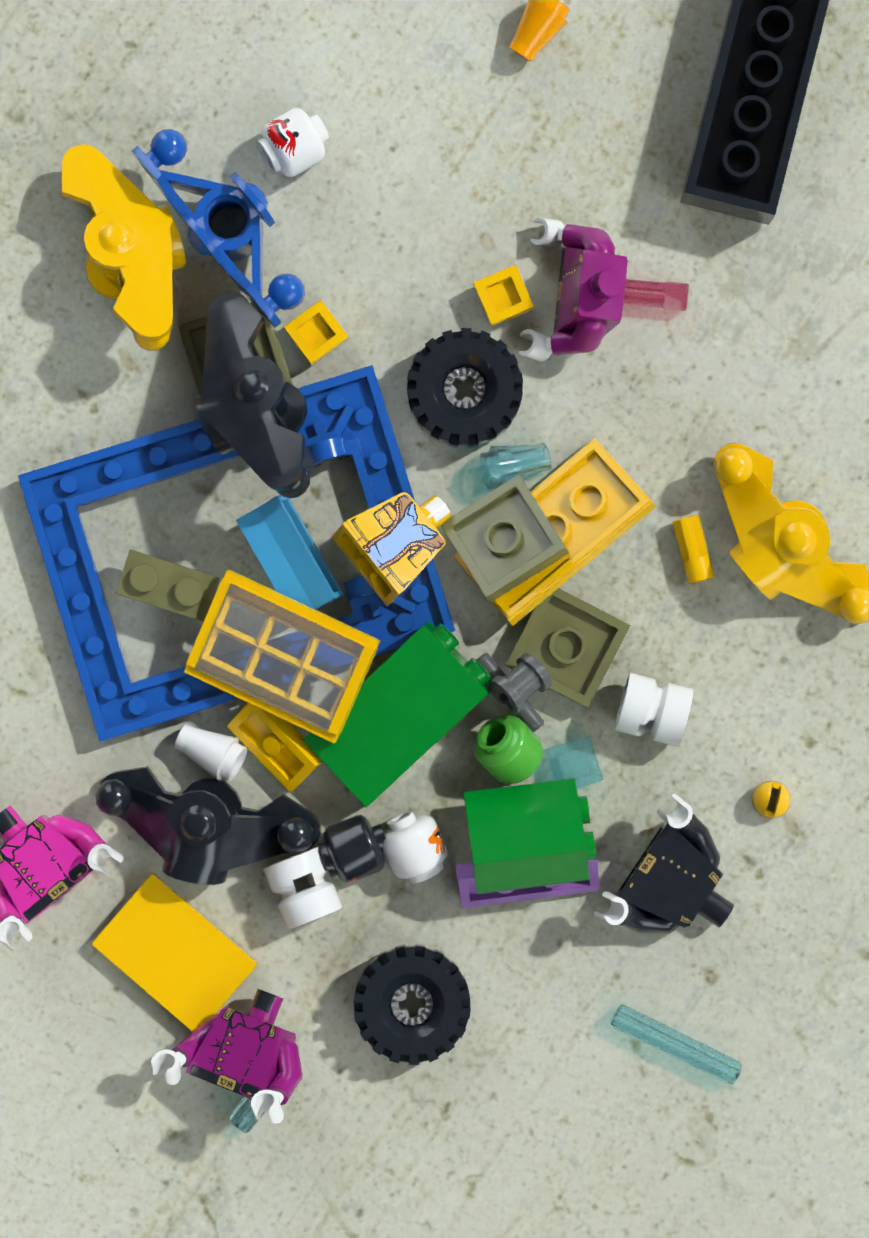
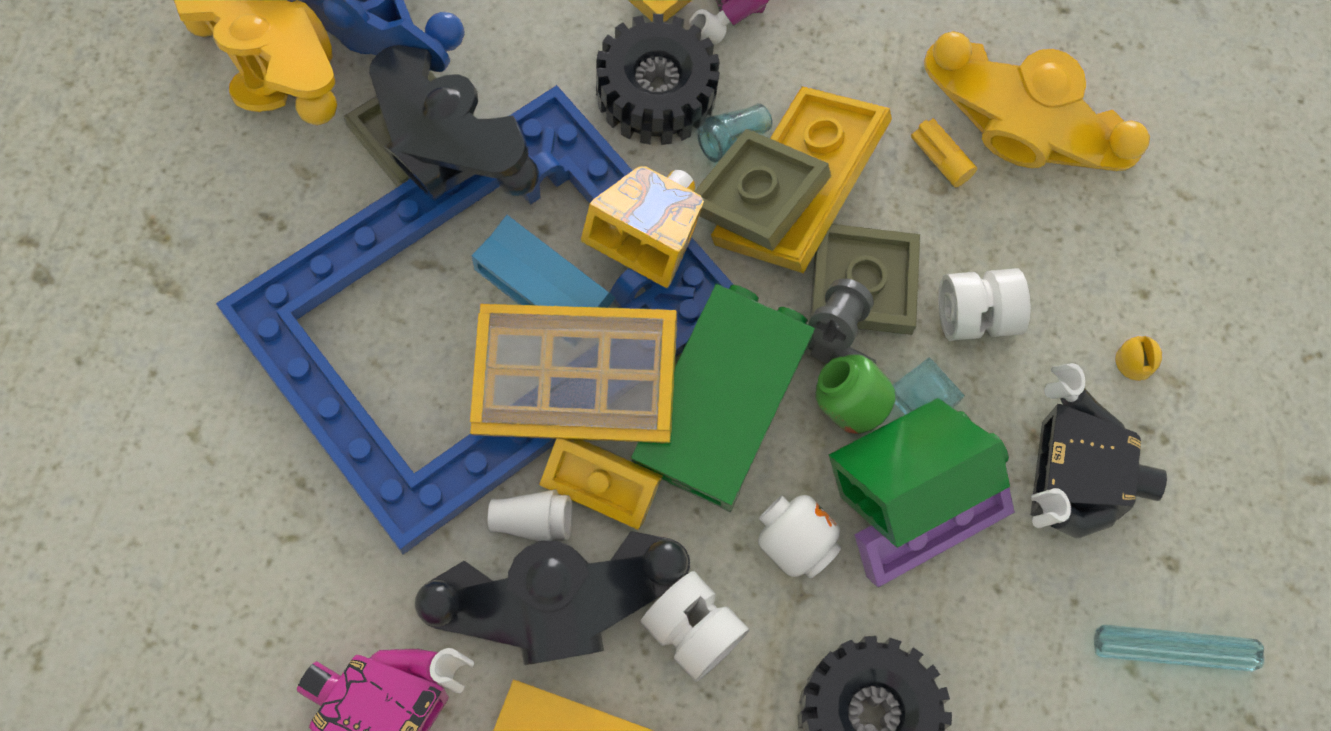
camera: 25 degrees left, 20 degrees down
(167, 585) = (419, 353): olive plate -> none
(316, 332) = (492, 77): yellow plate -> none
(353, 849) = (734, 561): black head -> none

